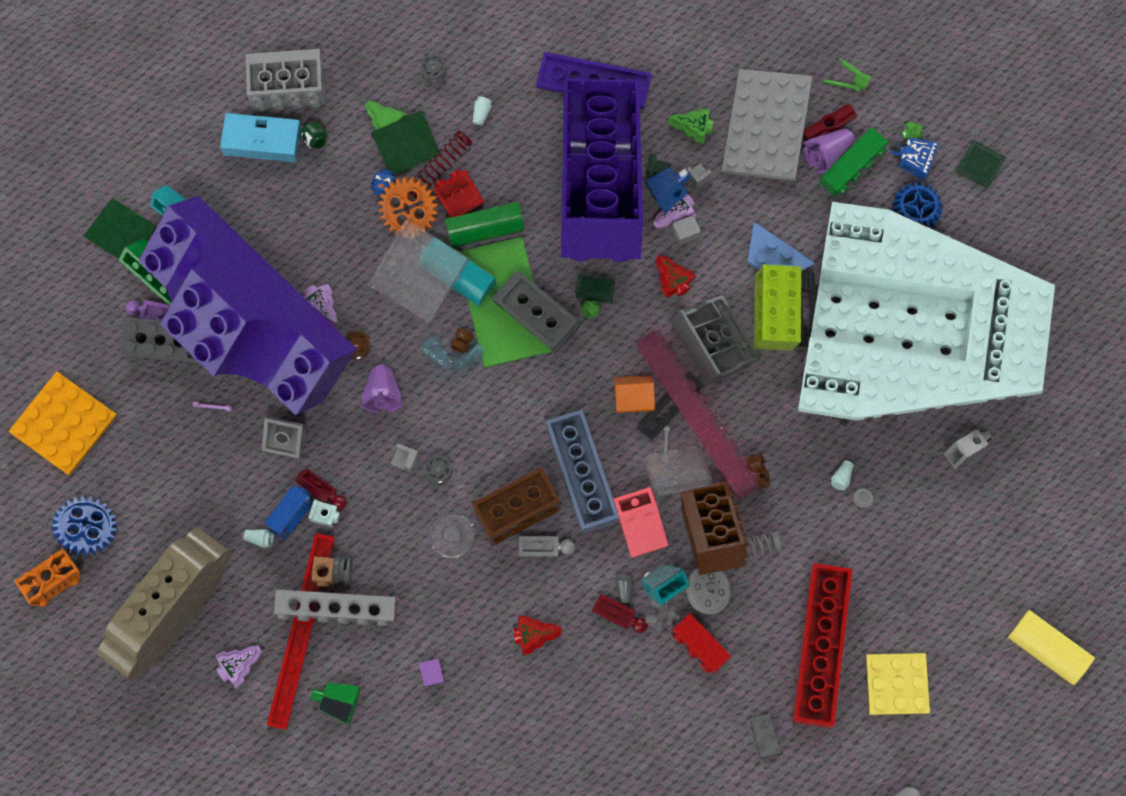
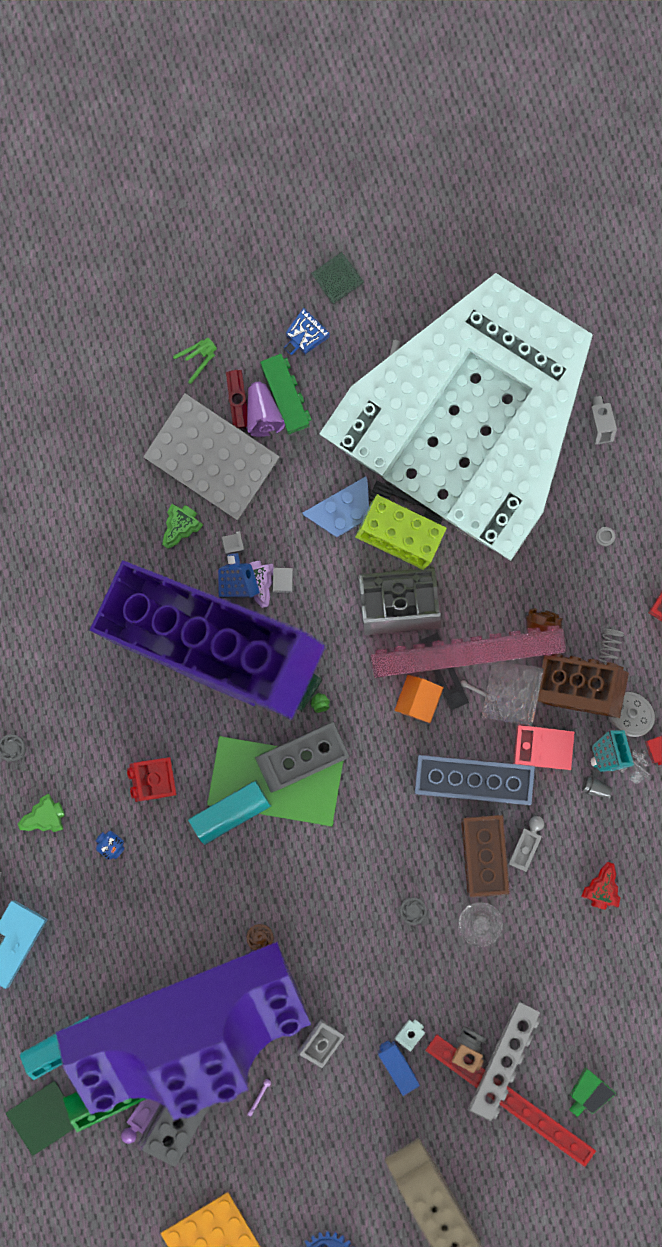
camera: 65 degrees left, 10 degrees up
(237, 664) = (516, 1171): lavender rock -> none
(262, 537) = (406, 1104): light aqua cone -> none
(314, 135) = (29, 891): dark green head -> none
(320, 488) = (385, 1028): dark red plate -> none
(322, 301) = (203, 955): lavender rock -> none
(381, 391) = (315, 932): medium lavender cone -> none
(402, 192) = (163, 832): orange gear -> none
(405, 143) = (78, 806): dark green piece -> none
(405, 458) = (389, 938): light grey panel -> none
(418, 271) = (215, 849): clear plate -> none
(431, 672) = (600, 997): medium lavender panel -> none
(433, 350) = (297, 867): clear light blue piece -> none
(460, 135) = (133, 818): dark red piece -> none
(462, 340) = (296, 833): reddish brown wheel -> none
(481, 110) = (75, 720): light aqua cone -> none
(484, 225) = (193, 766): green brick -> none
(559, 67) = (73, 622): dark purple plate -> none
(618, 614) = (618, 804): dark red plate -> none
(654, 166) = (208, 579): clear green panel -> none
(673, 277) = (323, 612): red rock -> none
(842, 477) = (578, 545): light aqua cone -> none
(913, 131) = (279, 325): bright green plant -> none
(932, 202) = (346, 352): blue gear -> none

